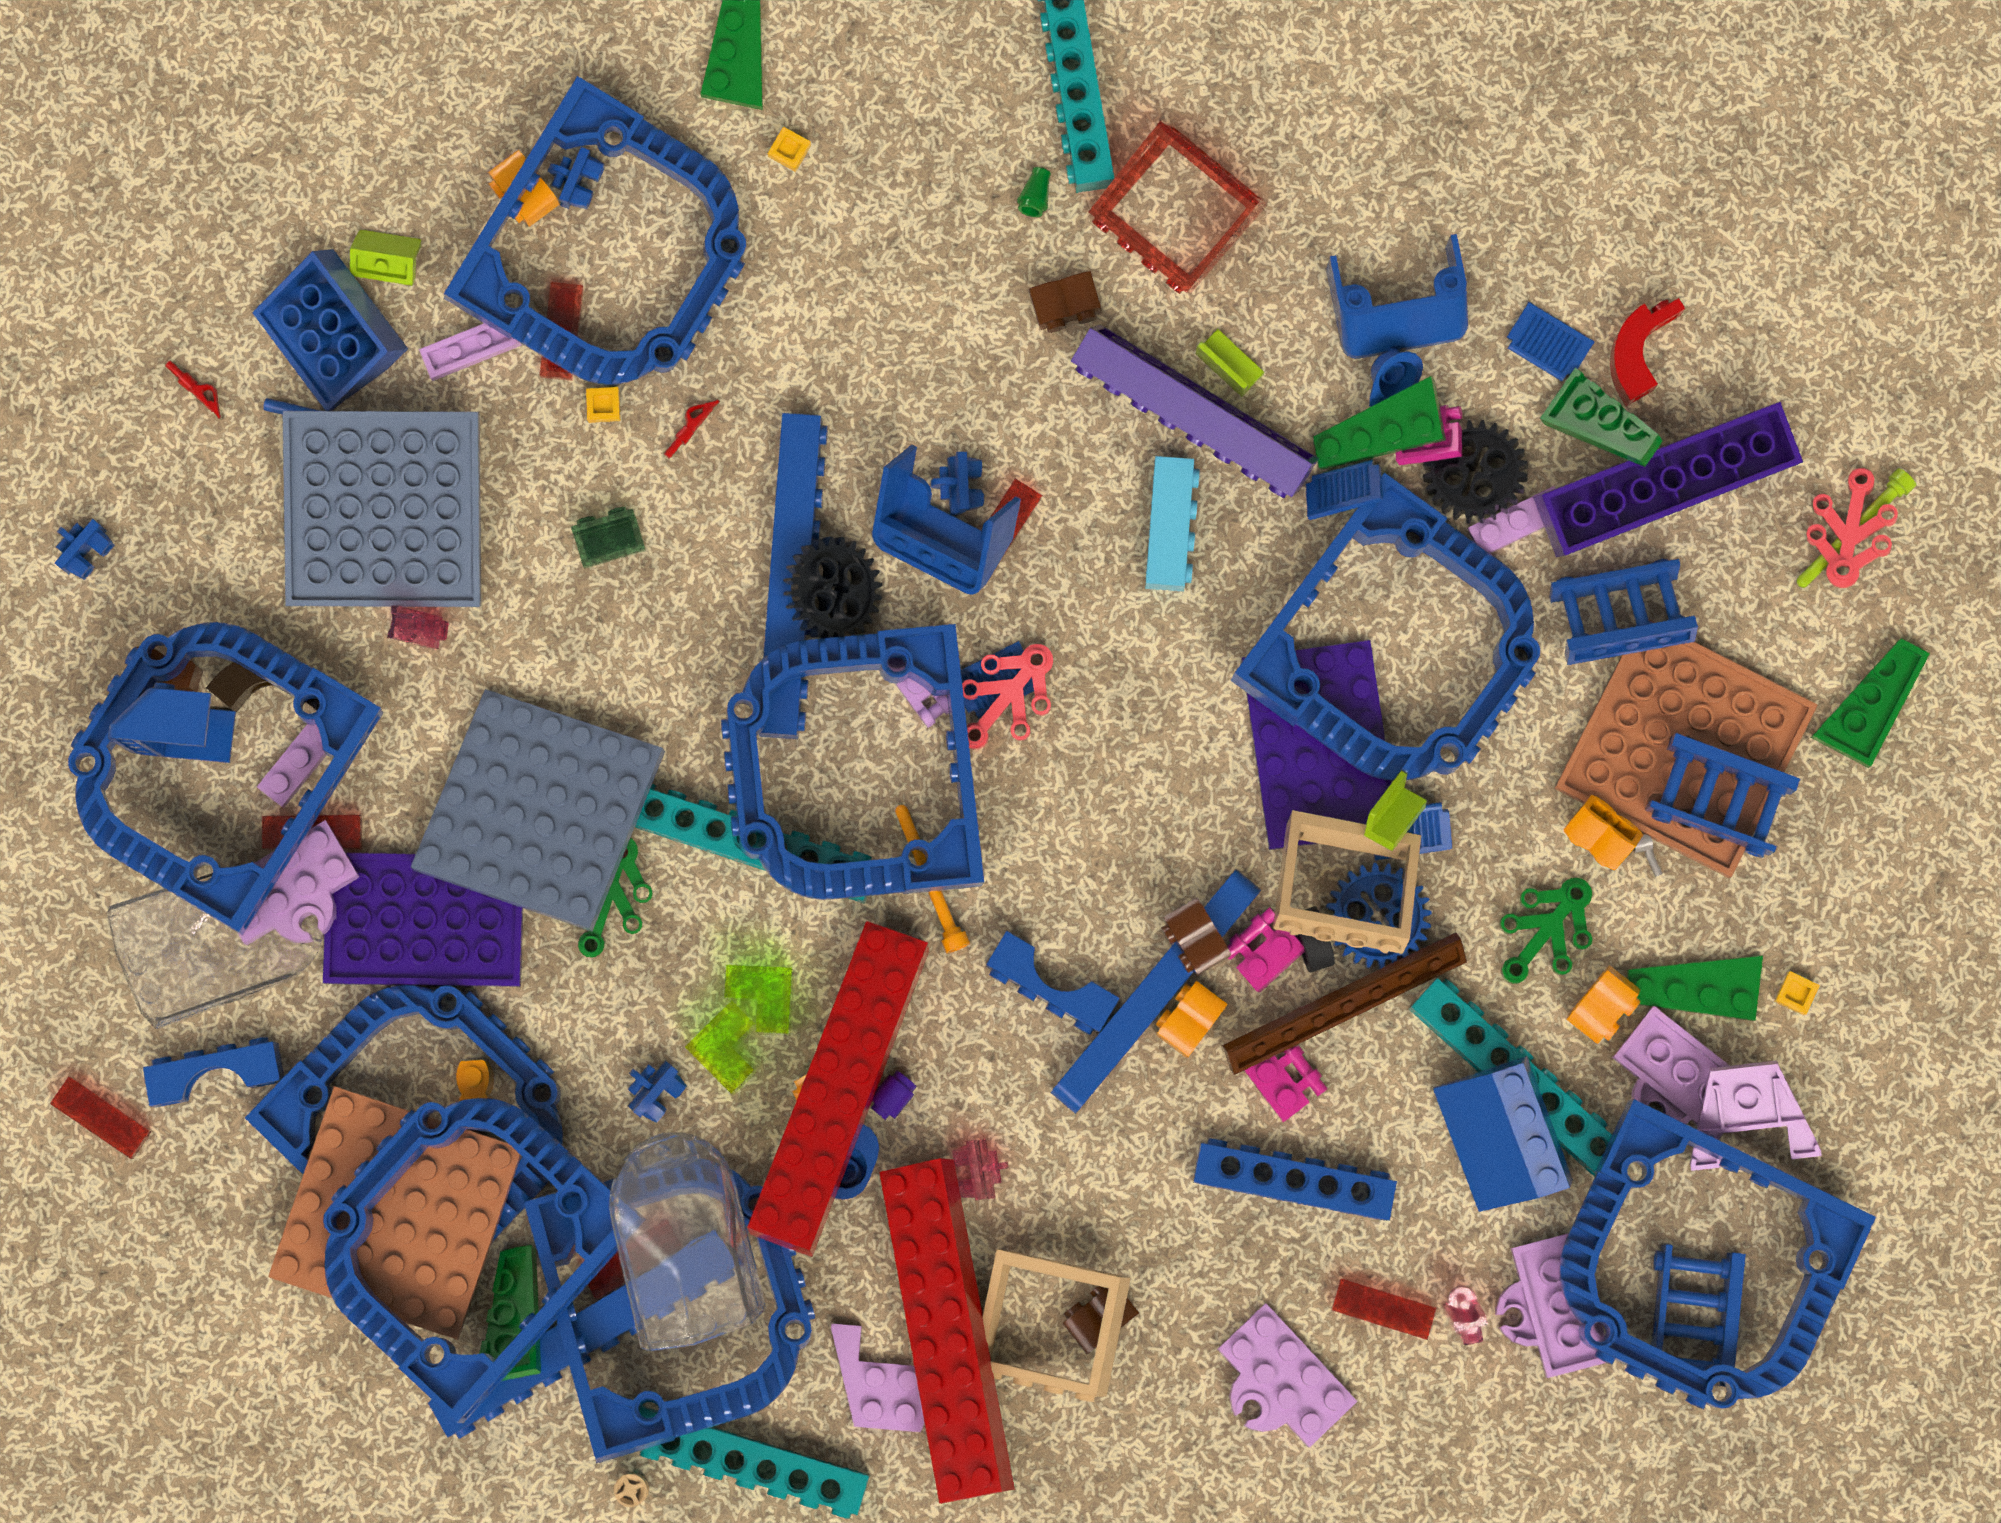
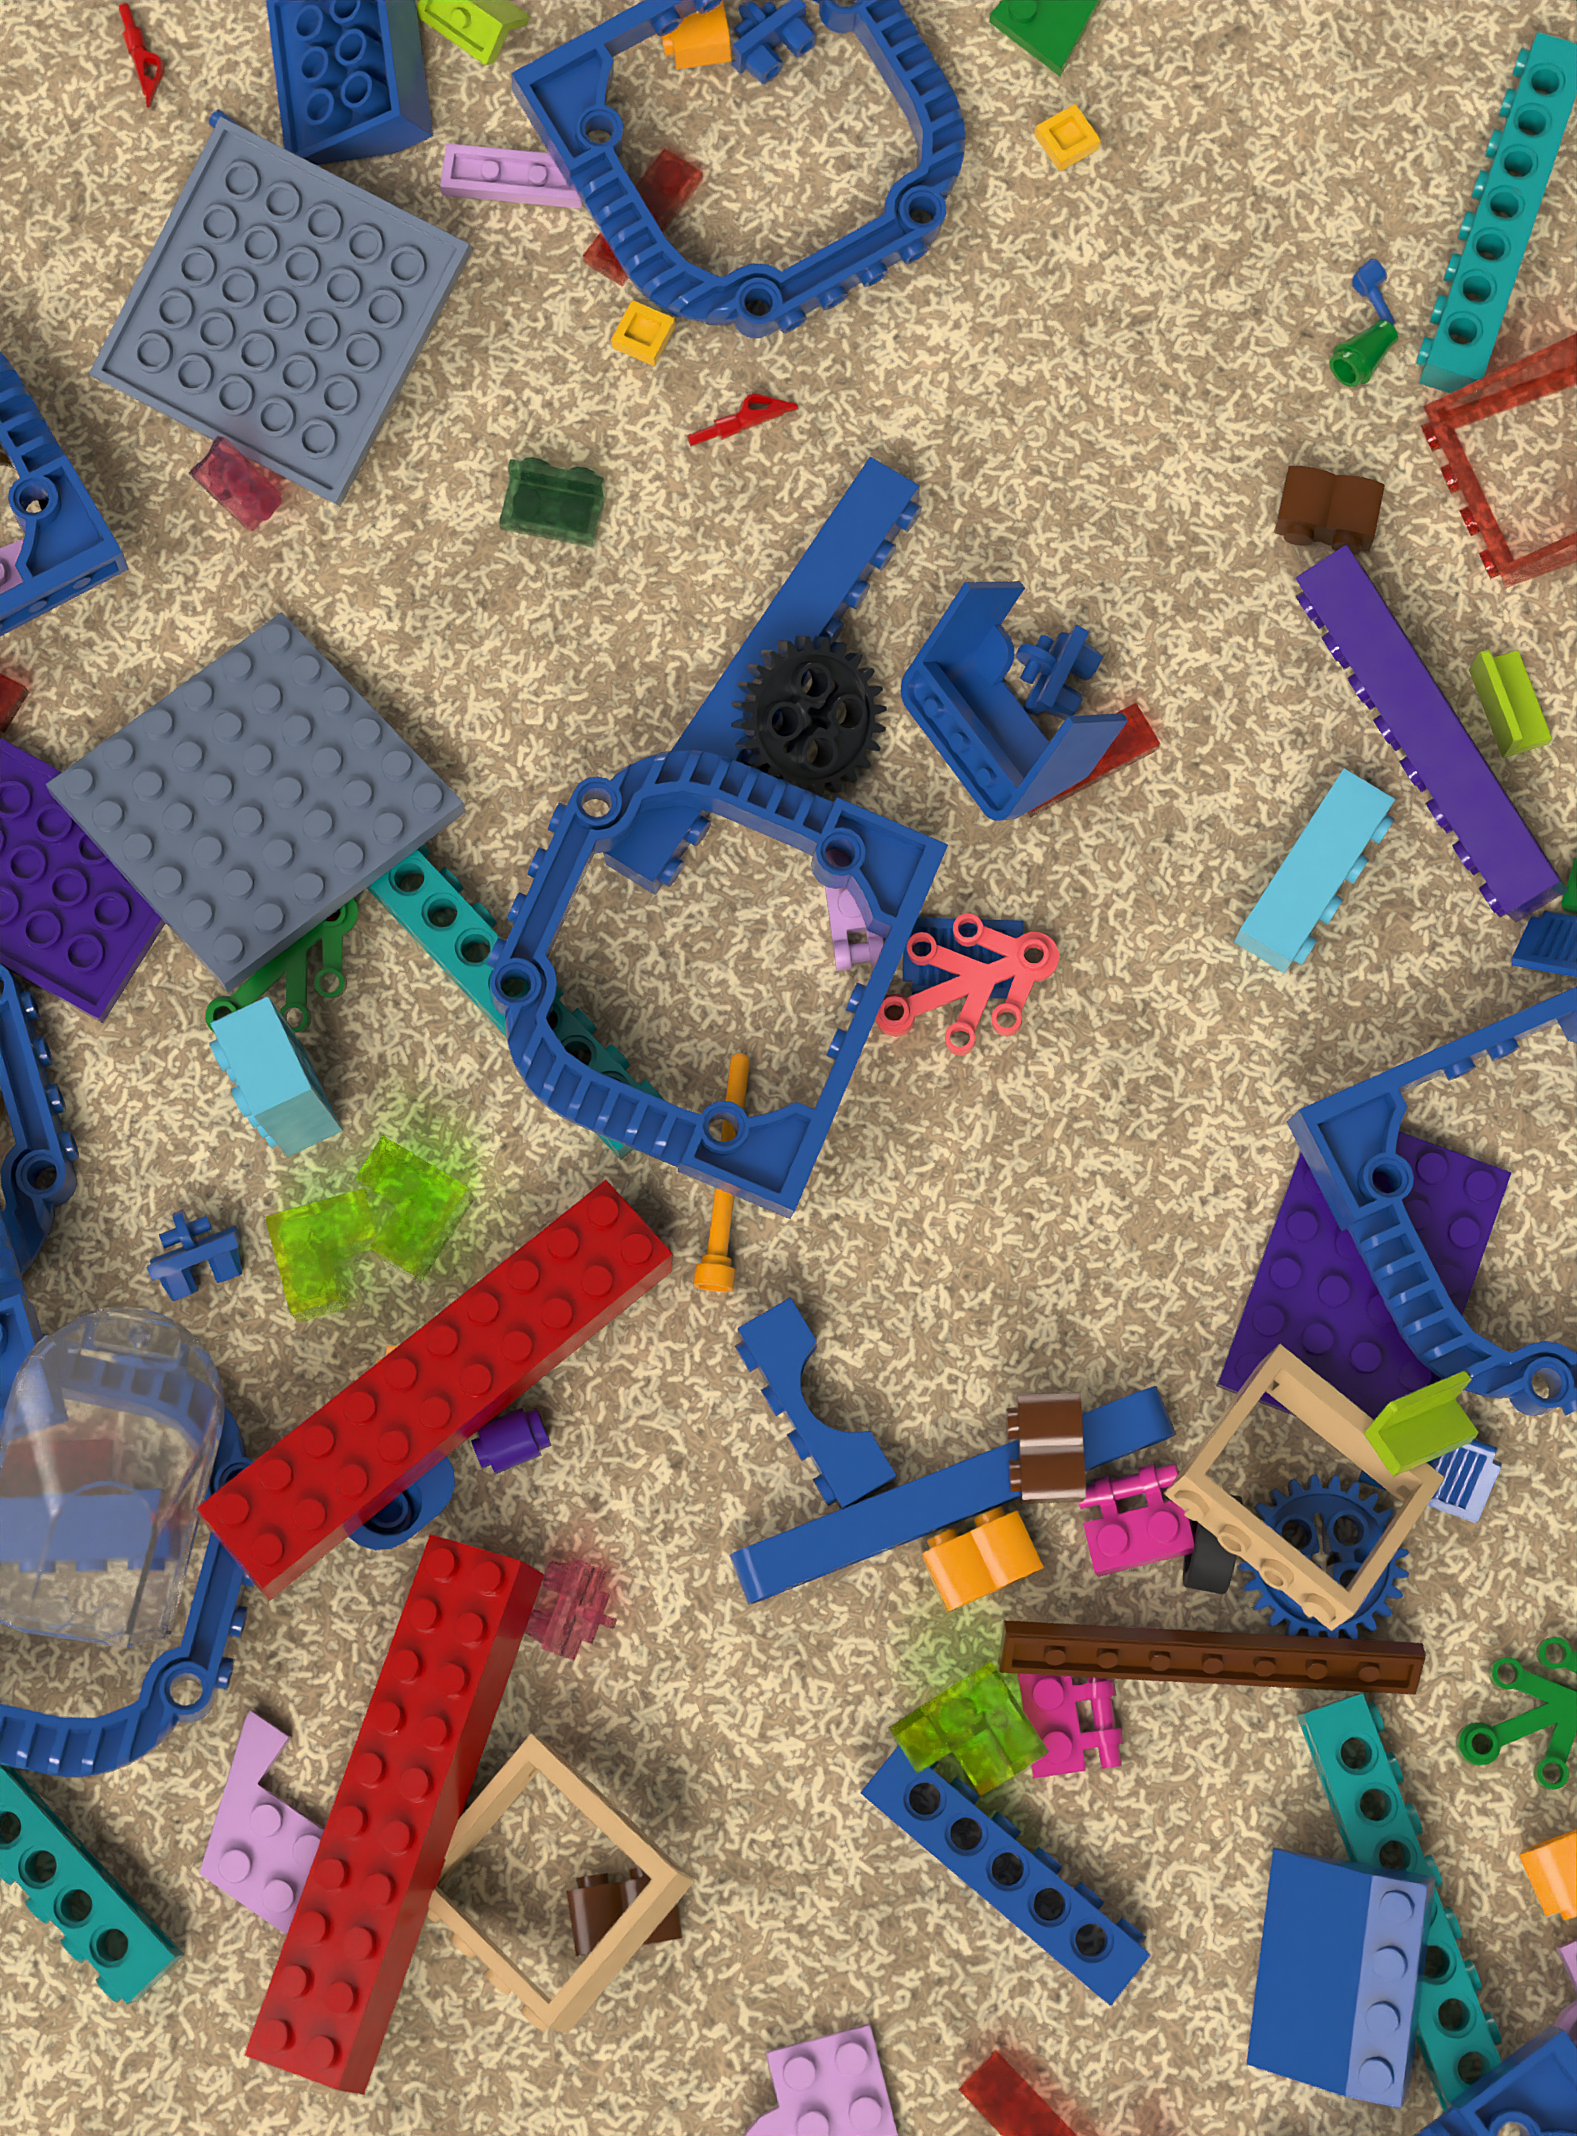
camera: 30 degrees right, 5 degrees down
(645, 961) = (273, 1078): none -> medium azure brick
(1013, 146) = (1366, 282): none -> blue hand
(1237, 1110) = (978, 1724): none -> clear neon green brick

